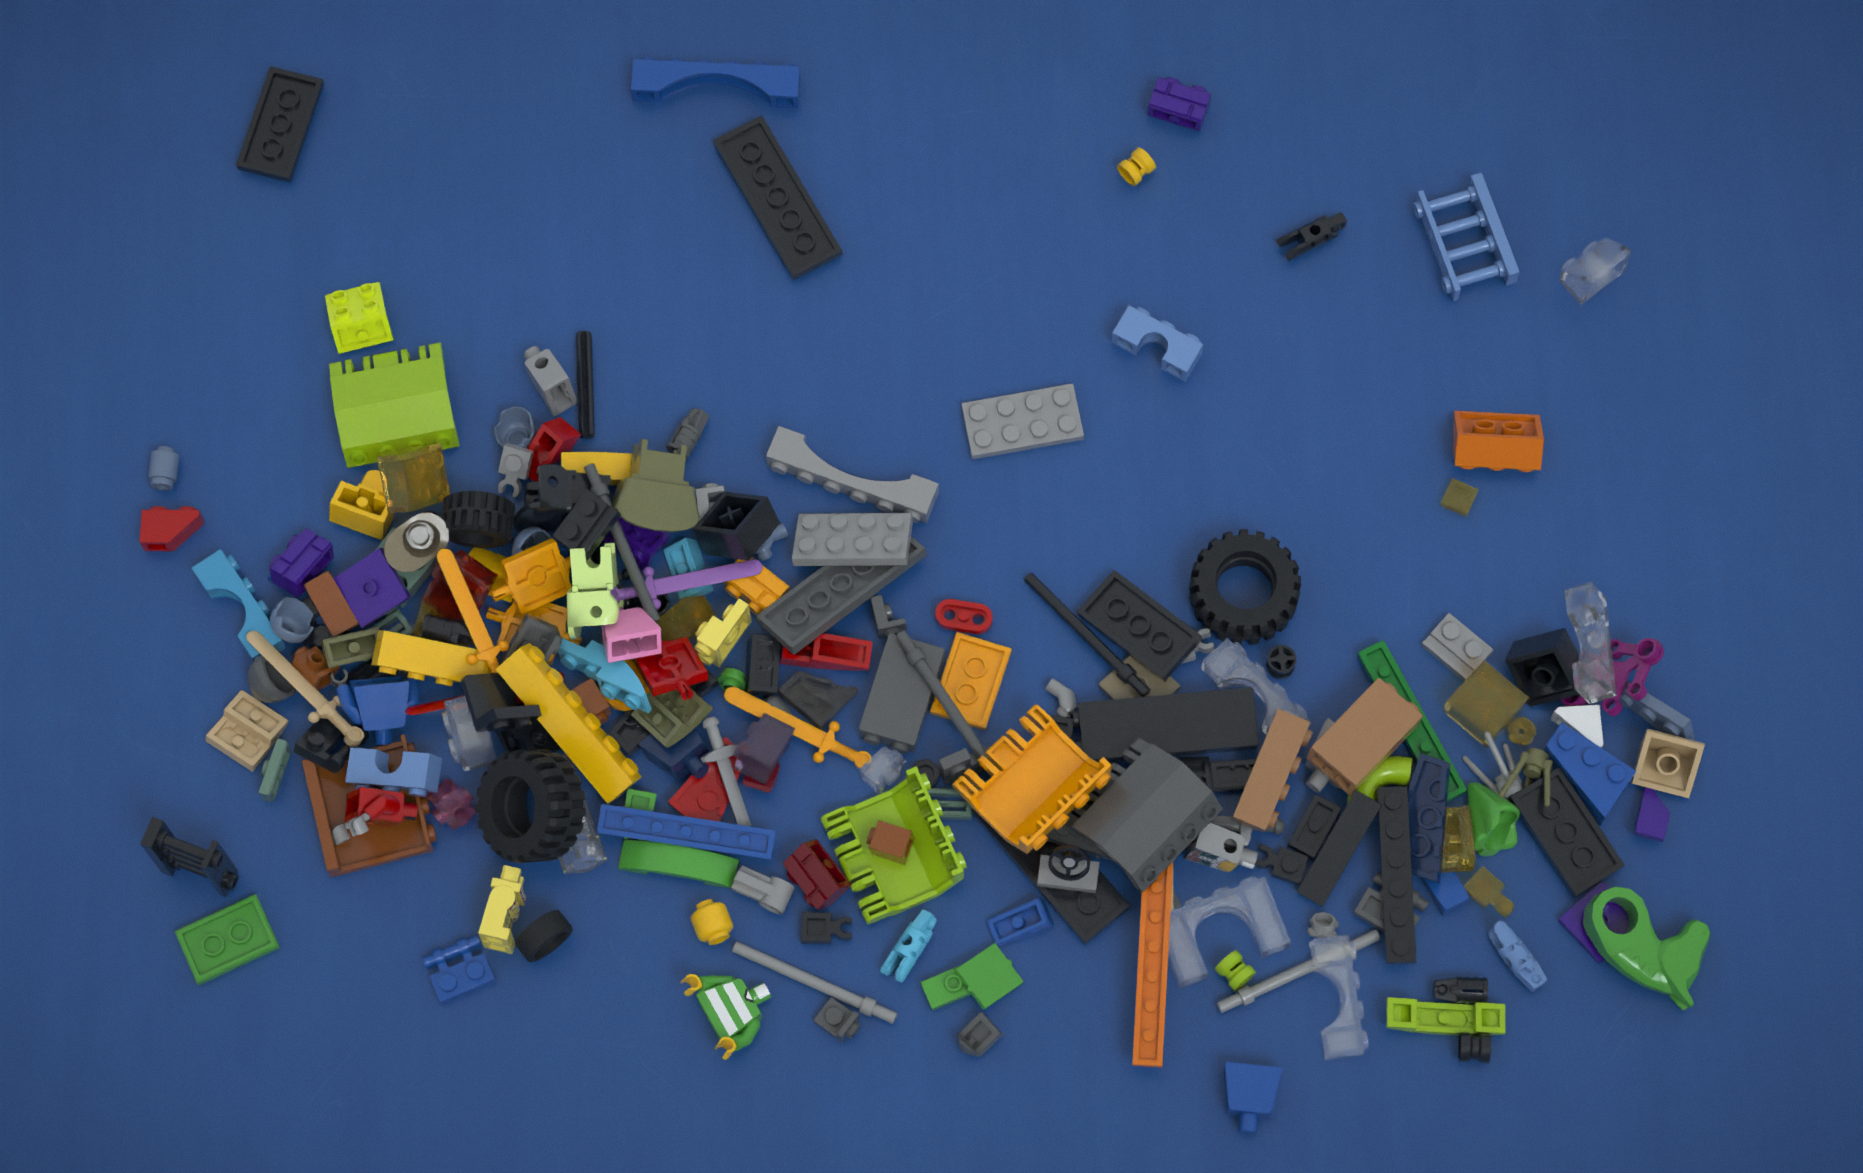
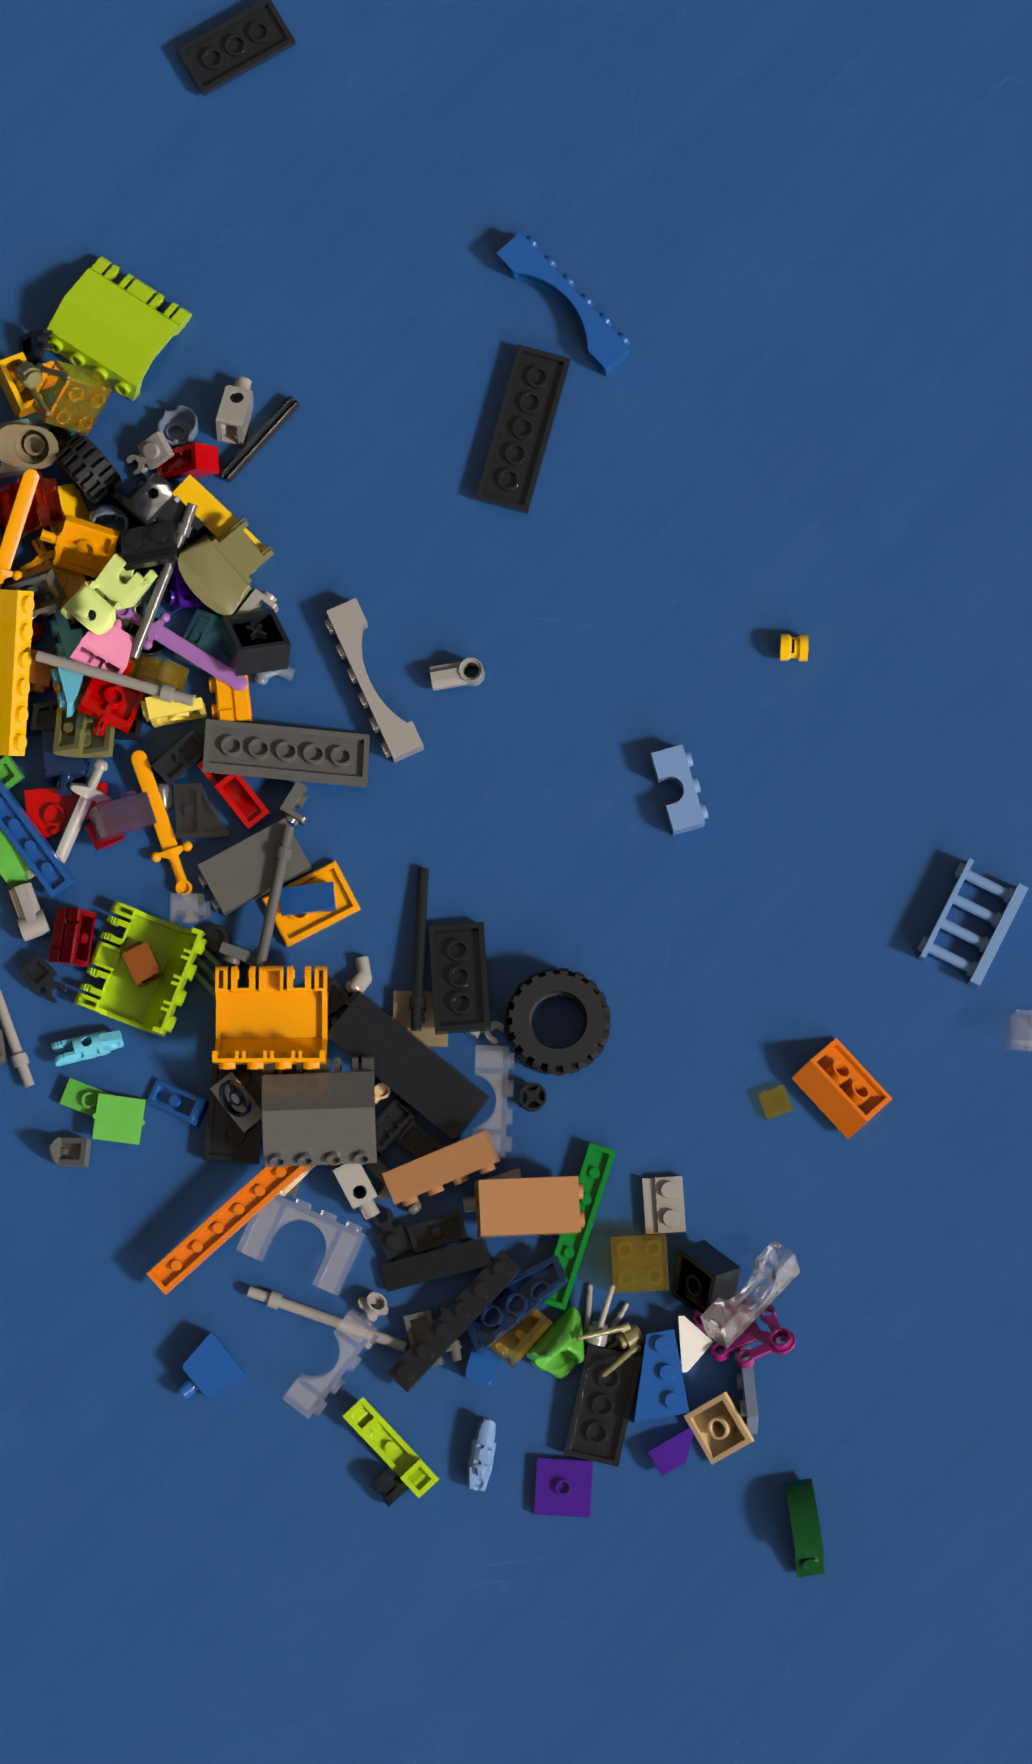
camera: 45 degrees right, 10 degrees up
(343, 468) = (35, 344): none -> black plate
(358, 317) = (153, 240): neon yellow bracket -> none
(370, 488) = (32, 377): none -> olive plant
(688, 431) = (293, 542): dark grey hinge -> none
(710, 618) = (165, 693): none -> light grey bar
(732, 677) = (151, 746): bright green plate -> none
(852, 539) = (326, 727): light grey plate -> none
(908, 415) = (453, 674): none -> light grey piece
(964, 616) = (350, 855): red plate -> none
(968, 675) = (308, 899): none -> blue slope
(1022, 421) = (530, 754): light grey plate -> none
(1179, 103) = (871, 630): dark purple brick -> none
(1235, 970) = (284, 1277): lime wheel -> none
(1313, 234) = (879, 817): black hinge -> none
(1393, 771) = (529, 1248): lime cylinder -> none
(1451, 989) = (420, 1439): black hinge -> none
(1487, 889) = (508, 1389): clear yellow plate -> none
(1525, 724) = (652, 1311): clear yellow plate -> none
(1638, 953) = (561, 1535): bright green animal -> none
(1804, 772) = (804, 1527): none -> dark green arch

